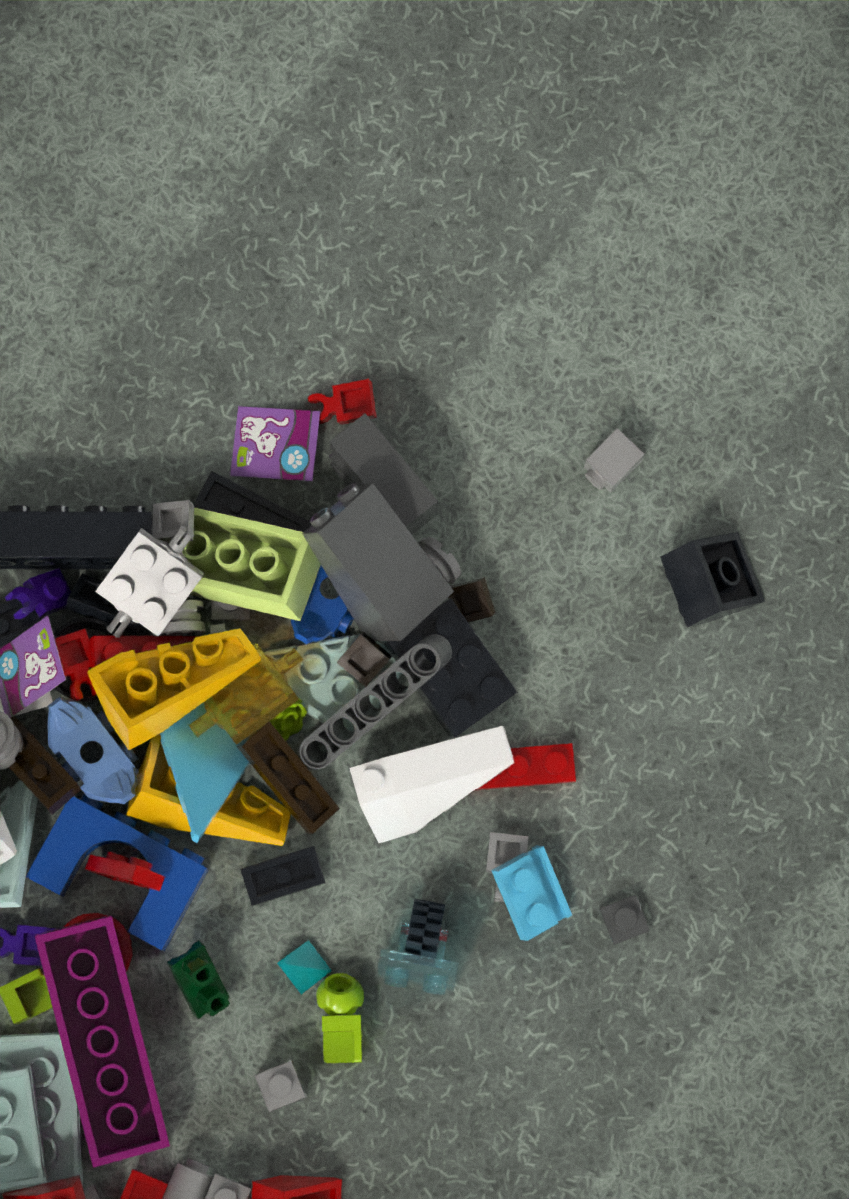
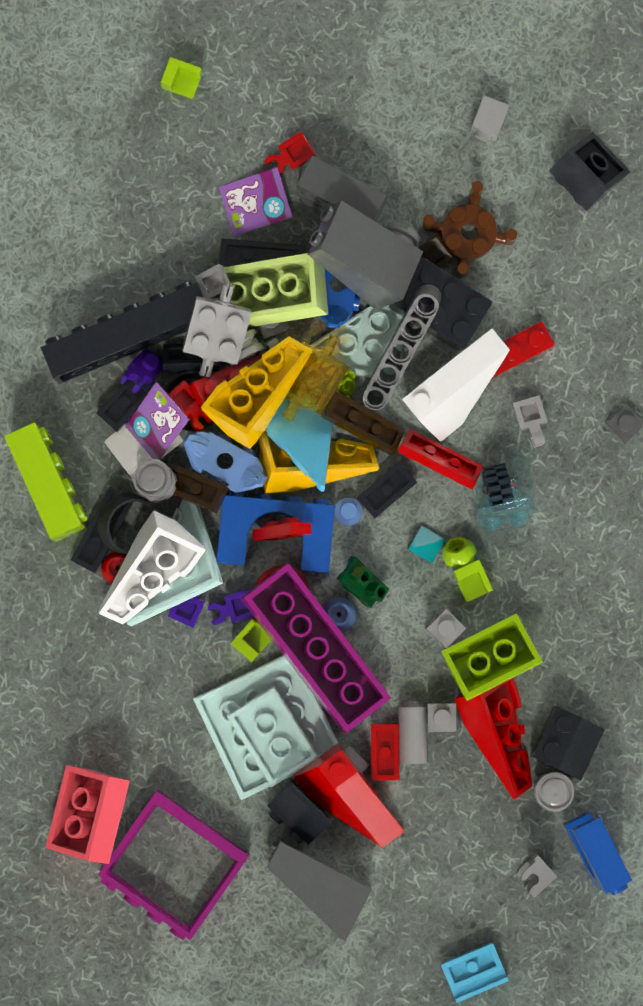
camera: 25 degrees left, 5 degrees up
(167, 1009) = (347, 609): none -> medium blue plate
(223, 882) = (348, 511): none -> medium blue plate
(248, 252) = (181, 78): none -> lime panel
(321, 1148) = (491, 657): none -> lime slope
(364, 659) = (380, 322): dark brown plate -> none
(368, 865) = (440, 459): none -> red plate
(531, 893) = (557, 431): medium azure plate -> none
(532, 570) = (471, 215): none -> reddish brown plate

